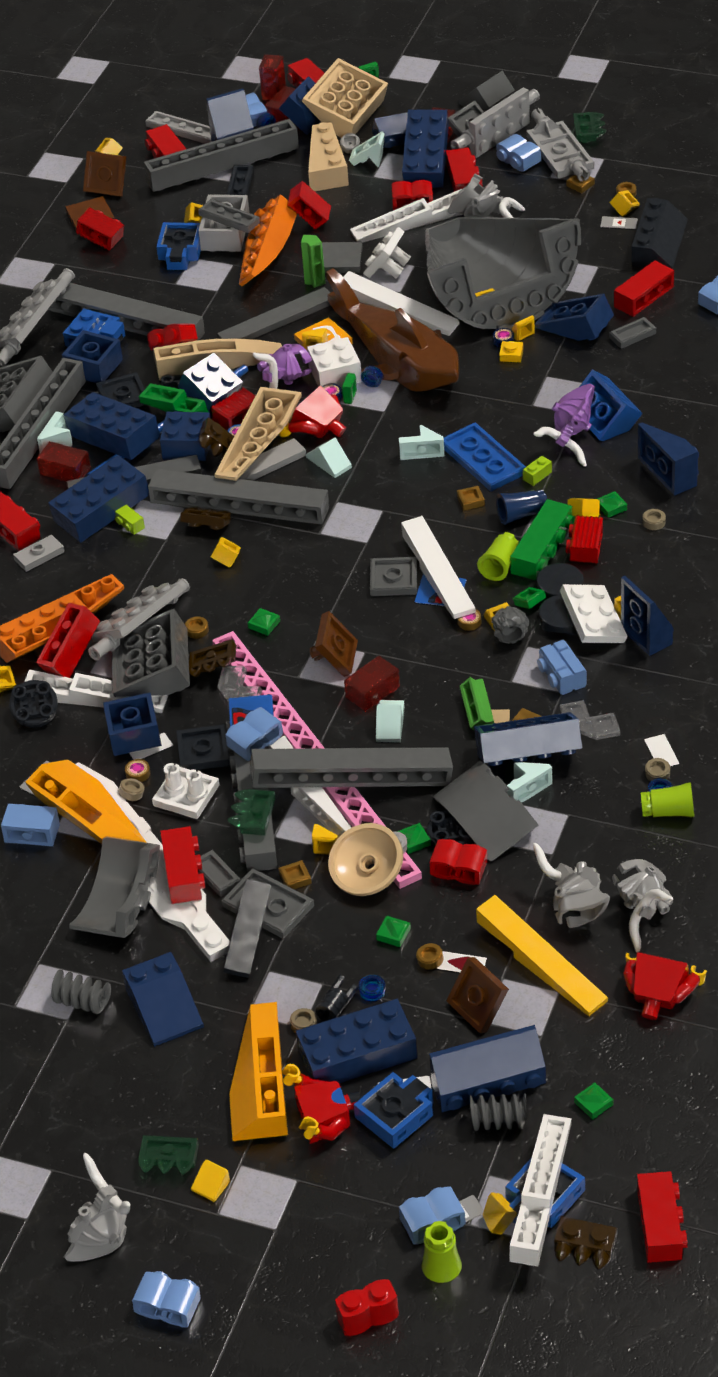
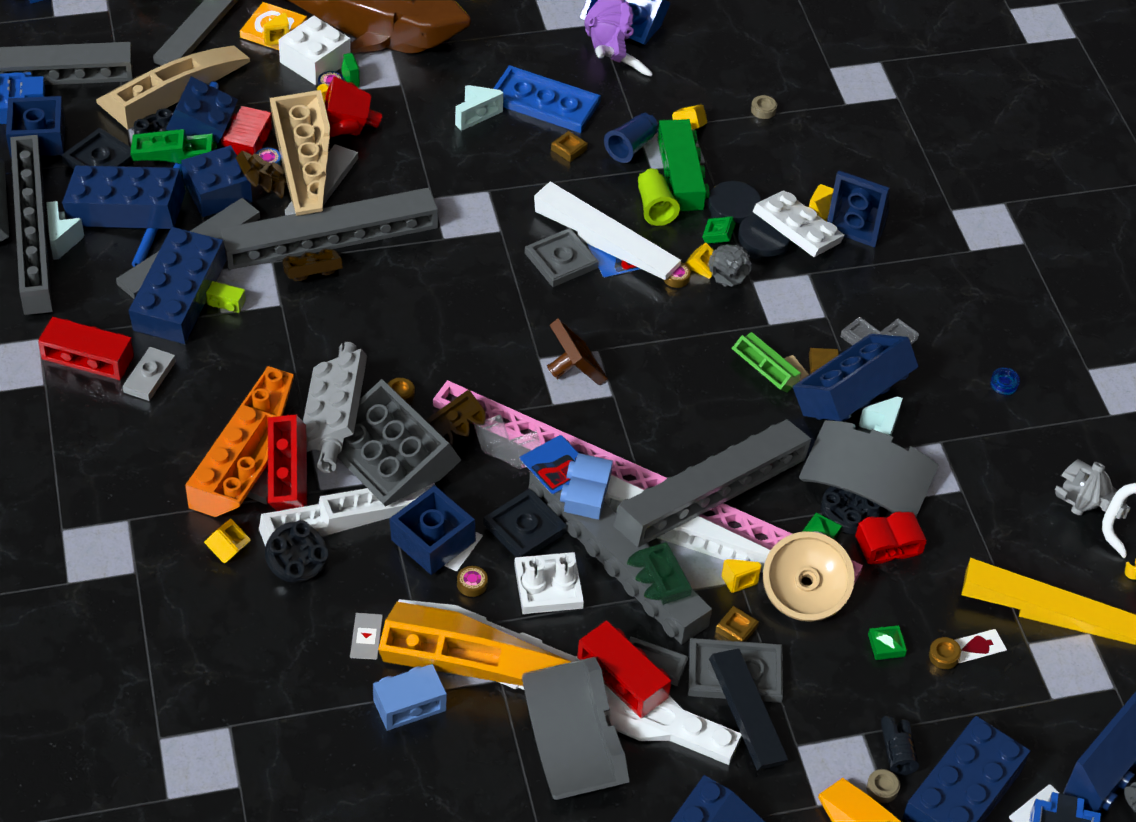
camera: 40 degrees left, 5 degrees up
(63, 462) = (96, 258): clear red brick -> none
(131, 789) = (485, 605): dark tan tile -> none
(172, 335) = (115, 74): red brick -> none
(225, 552) = (364, 295): yellow slope -> none
(264, 621) = (468, 357): green tile -> none
(283, 364) = (265, 66): medium lavender helmet -> none
(330, 458) = (389, 151): light aqua slope -> none
(372, 376) = (364, 50): clear blue tile -> none
(372, 683) = (643, 381): clear red brick -> none
(372, 987) = (919, 713): clear blue tile -> none
(389, 720) = (691, 413): light aqua slope -> none
(477, 995) = (1040, 673): reddish brown tile -> none
(537, 470) = (613, 95): lime piece -> none
(562, 667) = (813, 290): medium blue brick -> none
(575, 891) = (1041, 518): light grey helmet -> none
(585, 539) = (723, 149): red brick -> none
(612, 504) = (713, 105): green tile -> none
(657, 768) = (985, 361): dark tan tile -> none
(661, 748) = (969, 340): white sticker -> none
(668, 458) = (736, 39): dark blue slope -> none
(668, 801) = (1032, 388): lime plant -> none

